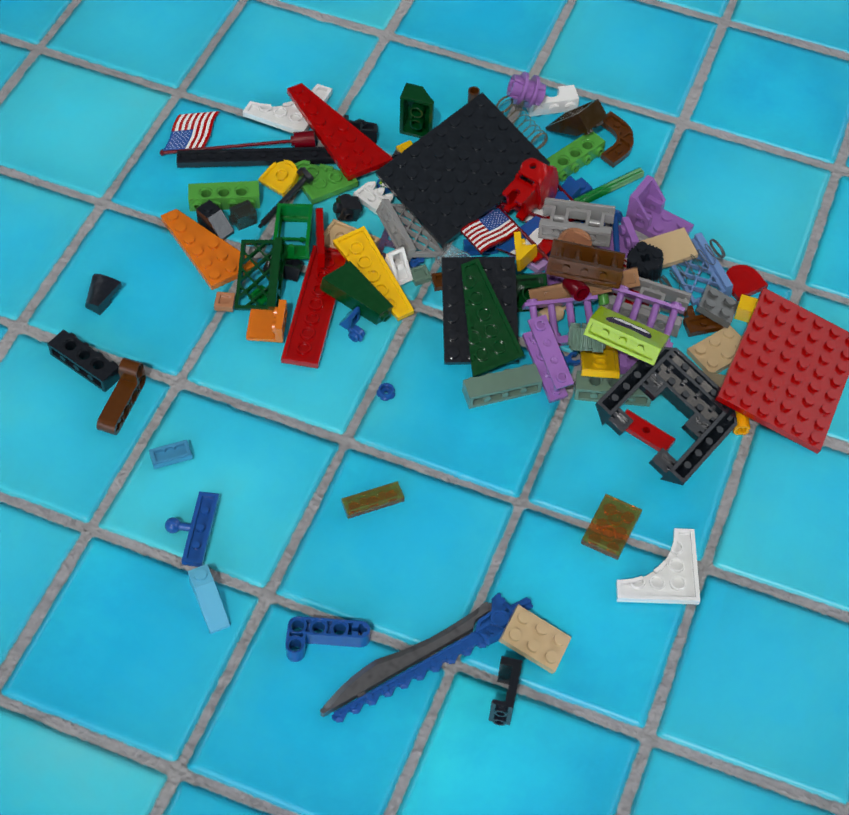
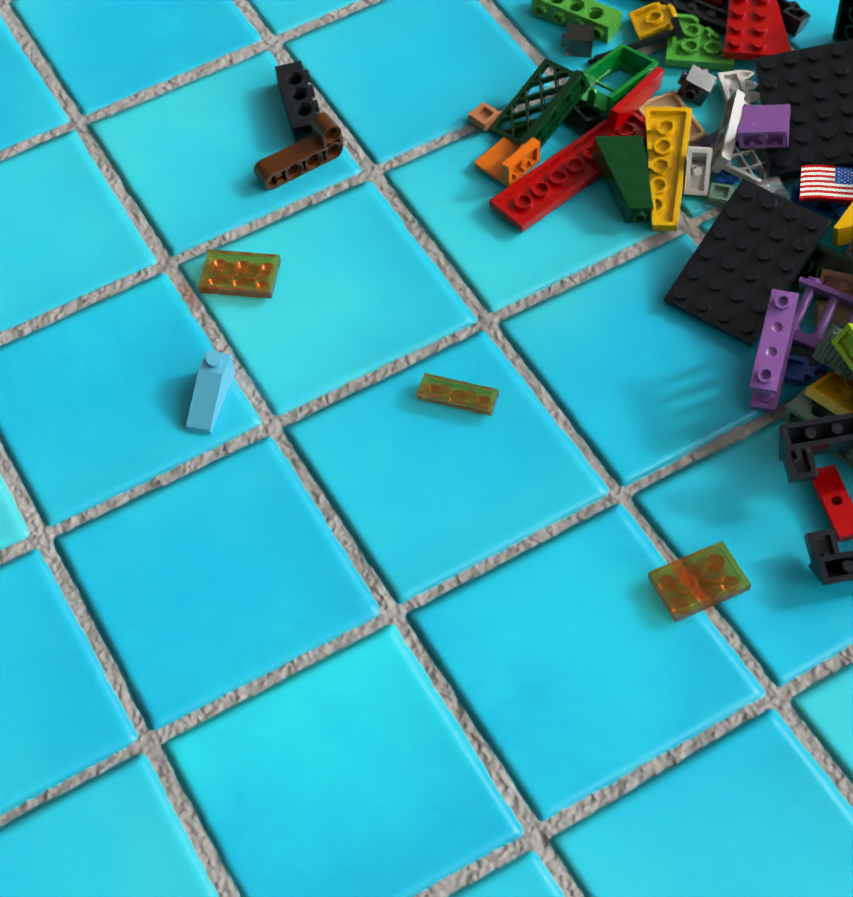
camera: 45 degrees right, 0 degrees up
(100, 293) = (375, 45): black slope -> none
(153, 505) = (239, 273): none -> clear orange plate
(170, 454) = (299, 234): dark azure plate -> none
(199, 529) = (260, 321): blue plate -> none
(208, 253) = (510, 56): orange wing -> none
(214, 220) = (544, 31): black slope -> none
(327, 637) = (316, 514): blue beam -> none
(351, 318) = (601, 200): blue slope -> none
(356, 333) = (592, 218): blue plate -> none
(386, 388) = (571, 293): blue plate -> none
(419, 215) = (764, 126): none -> medium lavender bracket
(489, 332) = (736, 284): dark green wing -> none
(491, 623) = (449, 594): piece -> none
(502, 385) = (704, 357): sand green brick -> none
(508, 674) = (416, 678): black panel -> none
(535, 639) = (498, 642): tan plate -> none
(672, 581) = (718, 685): white plate -> none

